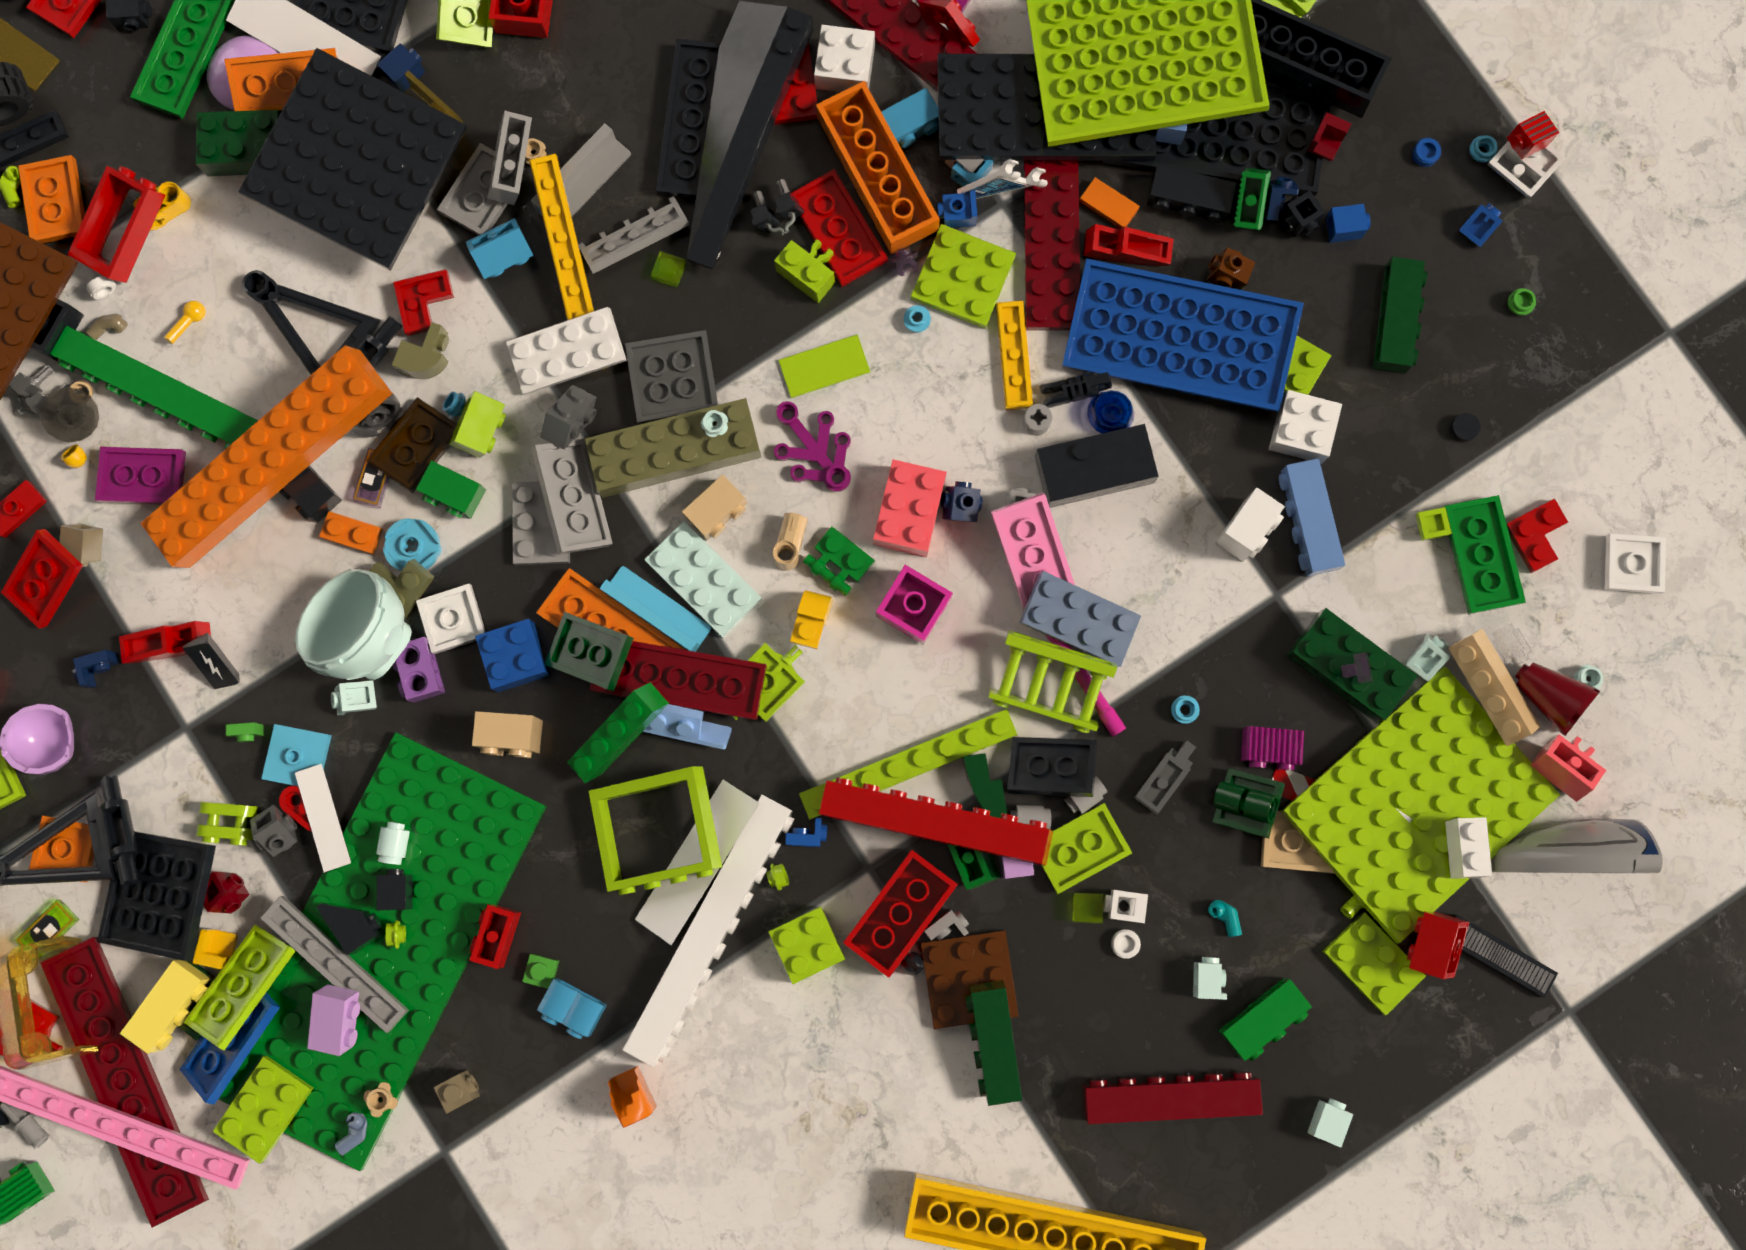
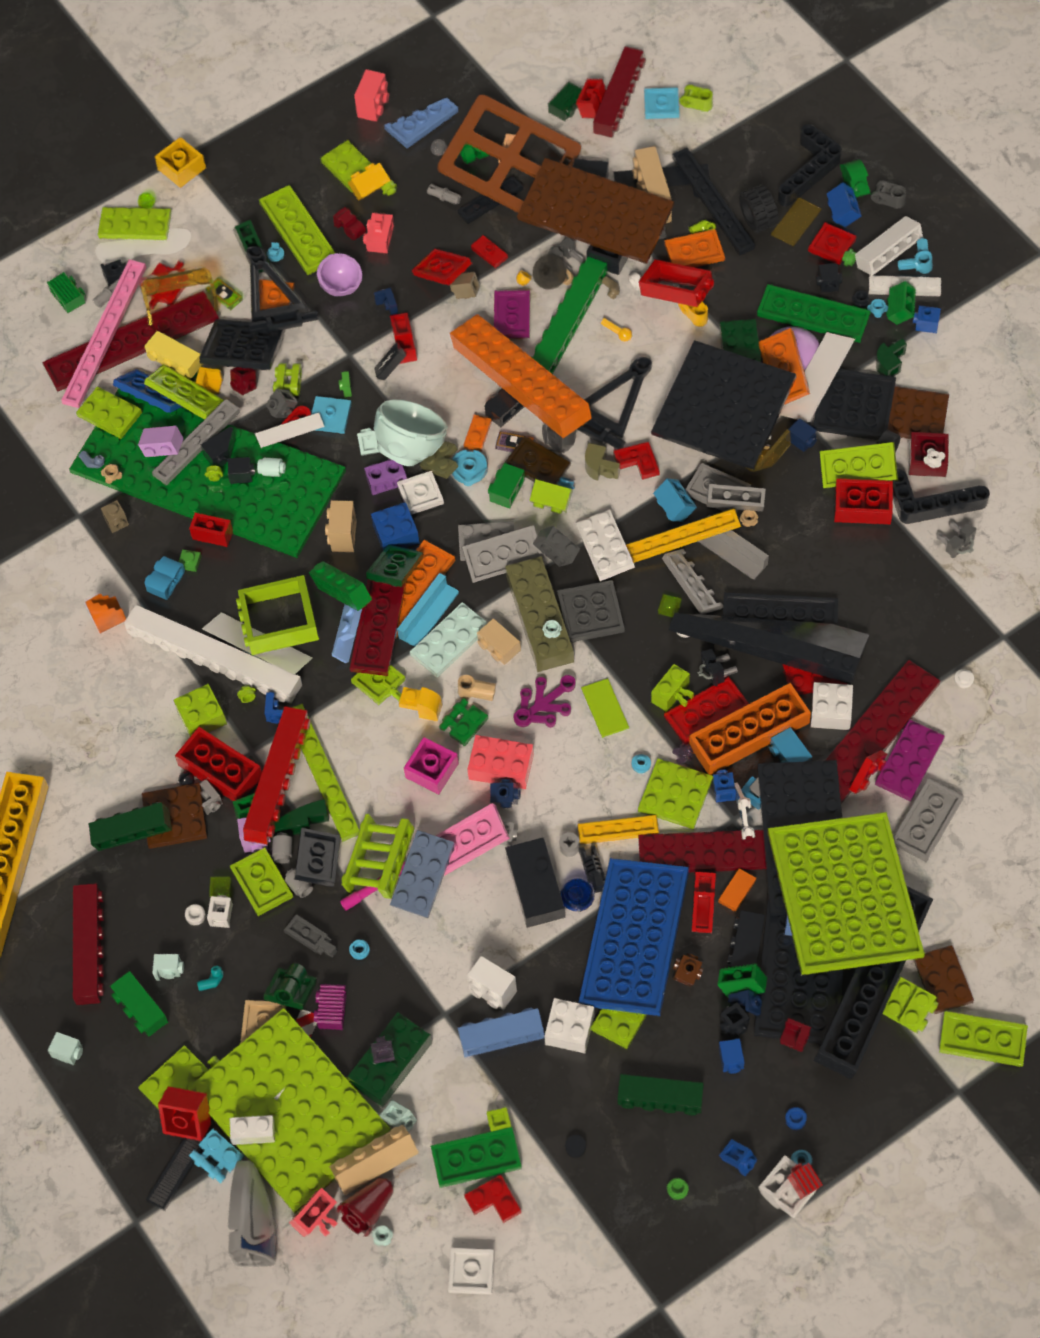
camera: 90 degrees right, 20 degrees down
(1476, 898) = (221, 1151): none -> medium azure plate

